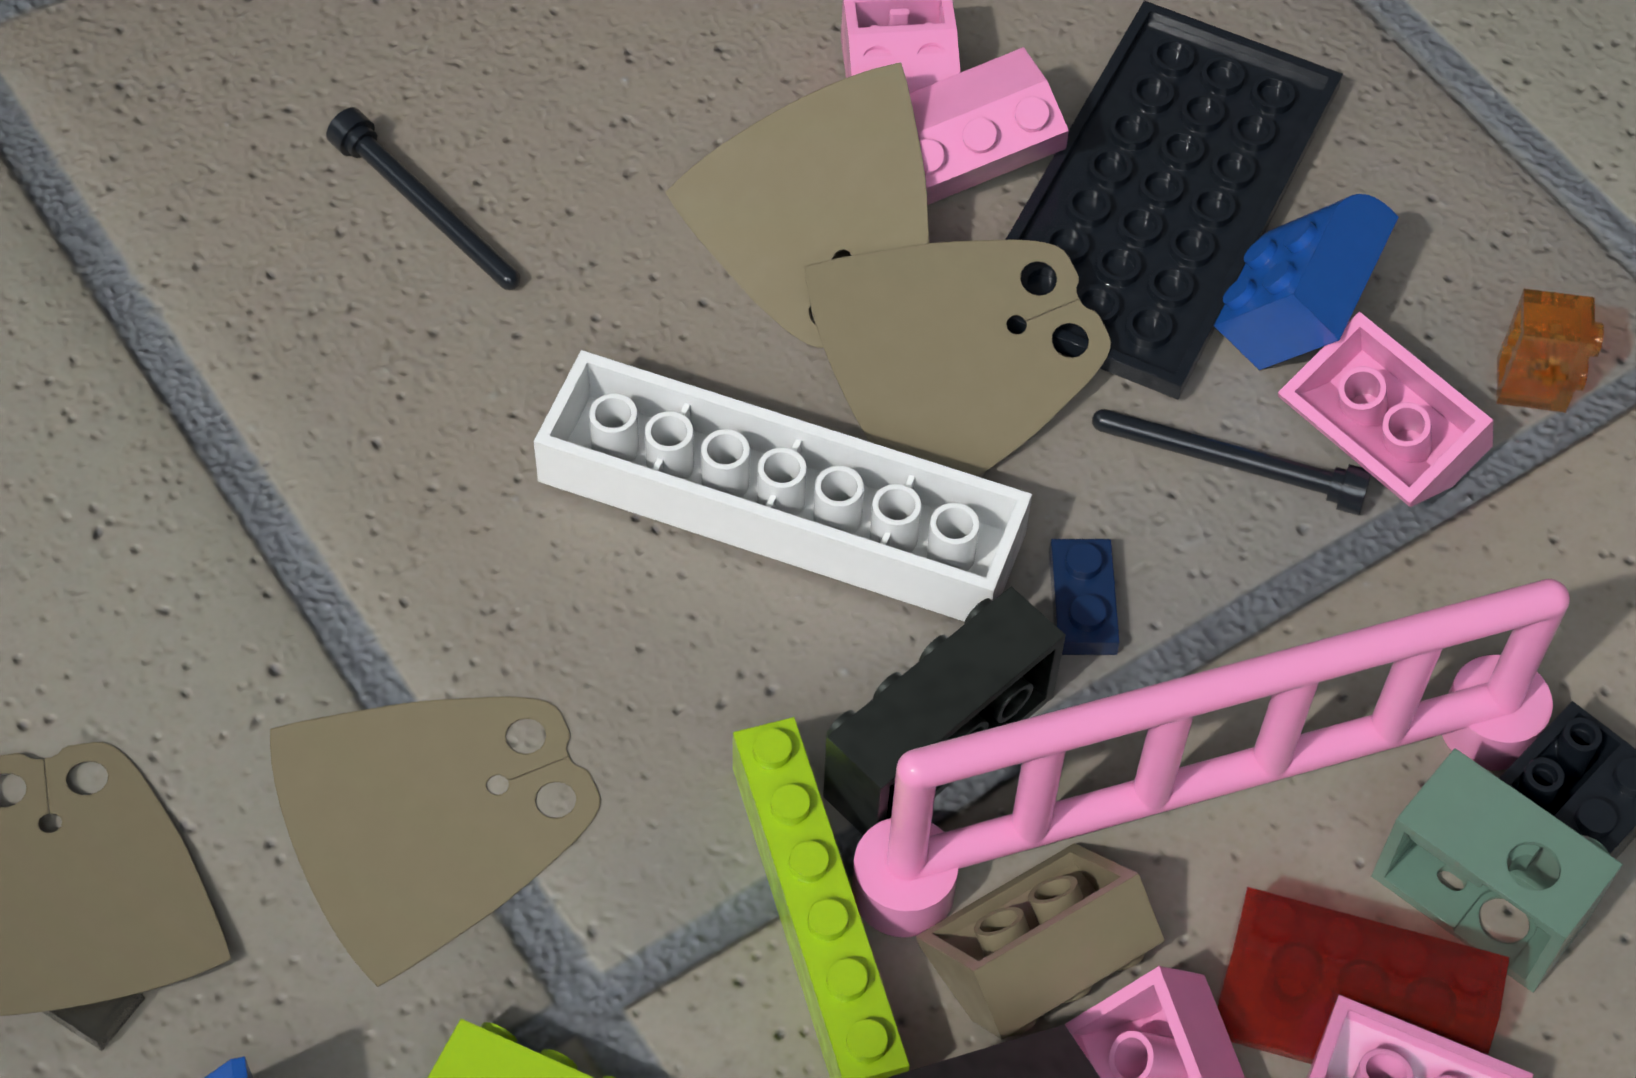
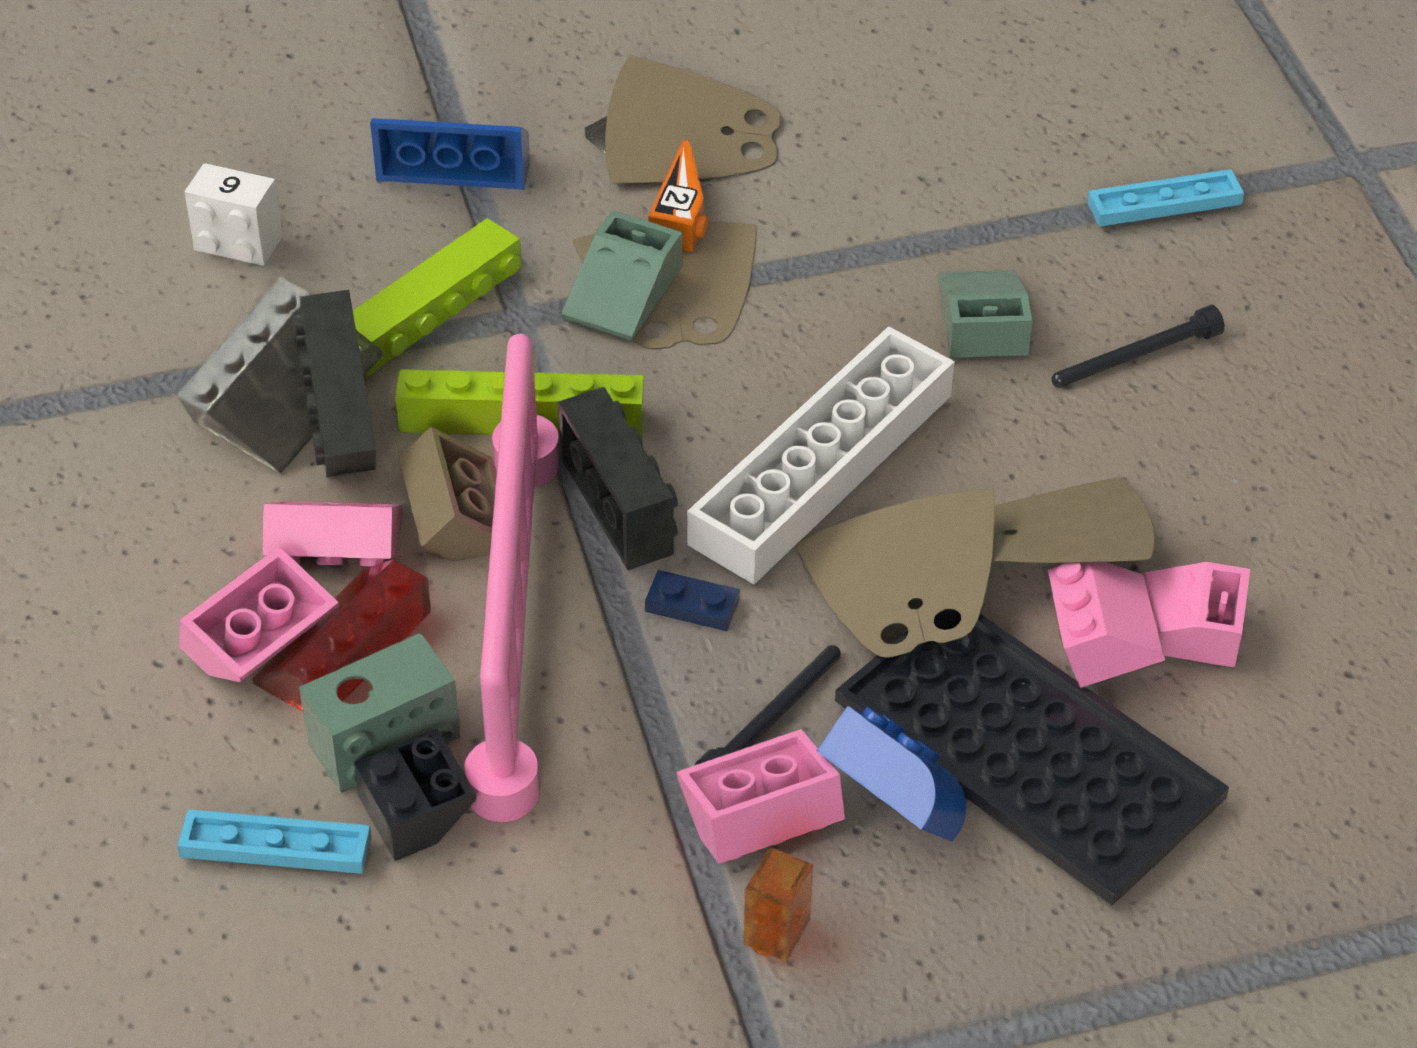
camera: 110 degrees right, 10 degrees down
(96, 217) = (1165, 197): none -> medium azure plate
(280, 821) = (681, 200): none -> orange slope
(408, 371) = (985, 313): none -> sand green slope
(488, 849) = (624, 275): none -> sand green slope

